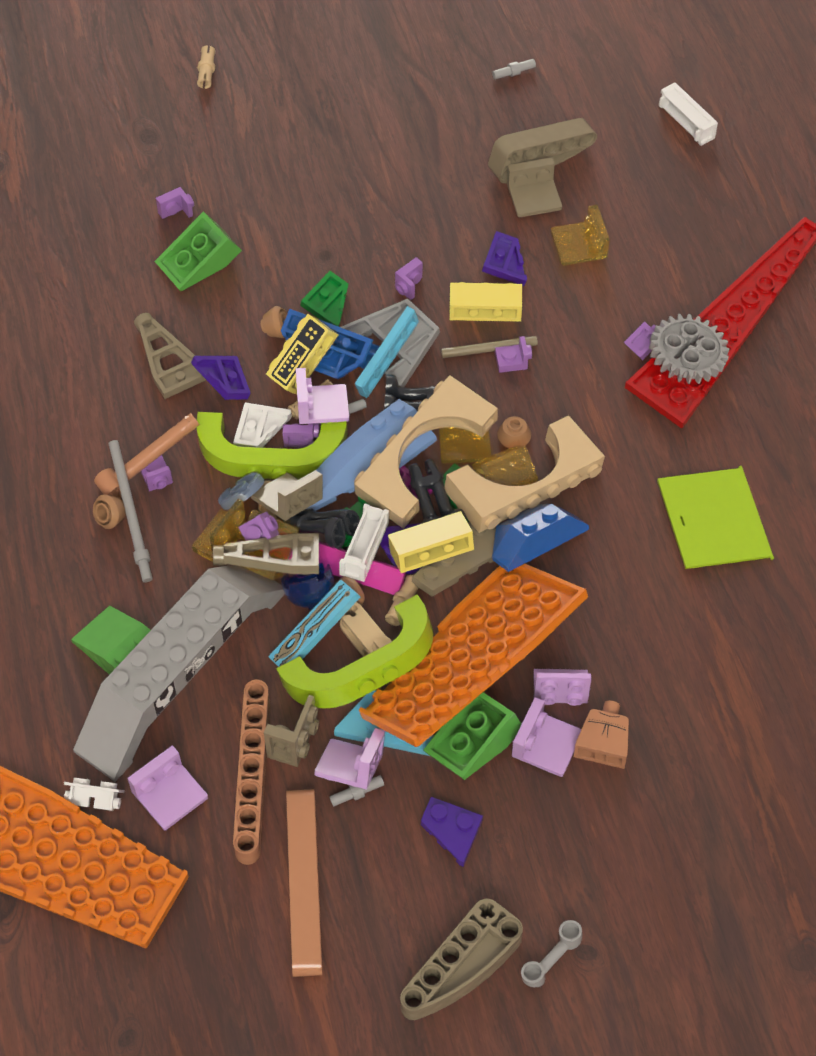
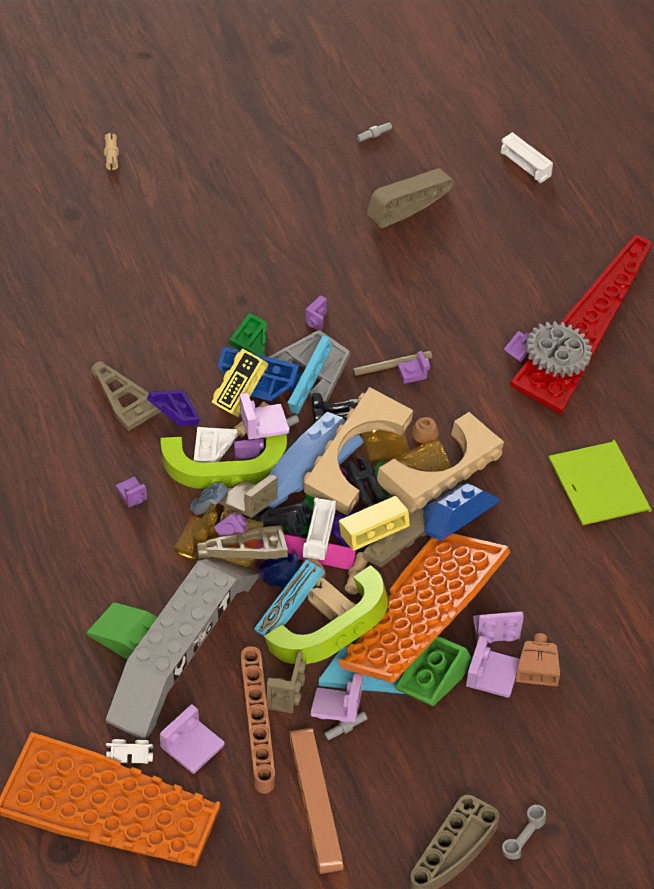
camera: 10 degrees left, 5 degrees down
(107, 479) = (98, 503): nougat piece -> none
(108, 511) = (99, 526): medium nougat cone -> none
(141, 554) = (133, 558): light grey bar -> none
(173, 202) = (105, 267): medium lavender bracket -> none
(197, 253) = (134, 308): bright green slope -> none
(273, 321) = (210, 359): medium nougat cone -> none
(452, 827) = (427, 745): dark purple wing -> none
(485, 301) = (384, 326): light yellow brick -> none
(505, 259) = (394, 291): dark purple wing -> none
(533, 187) = (407, 229): dark tan bracket -> none
(582, 240) = (456, 269): clear yellow bracket -> none

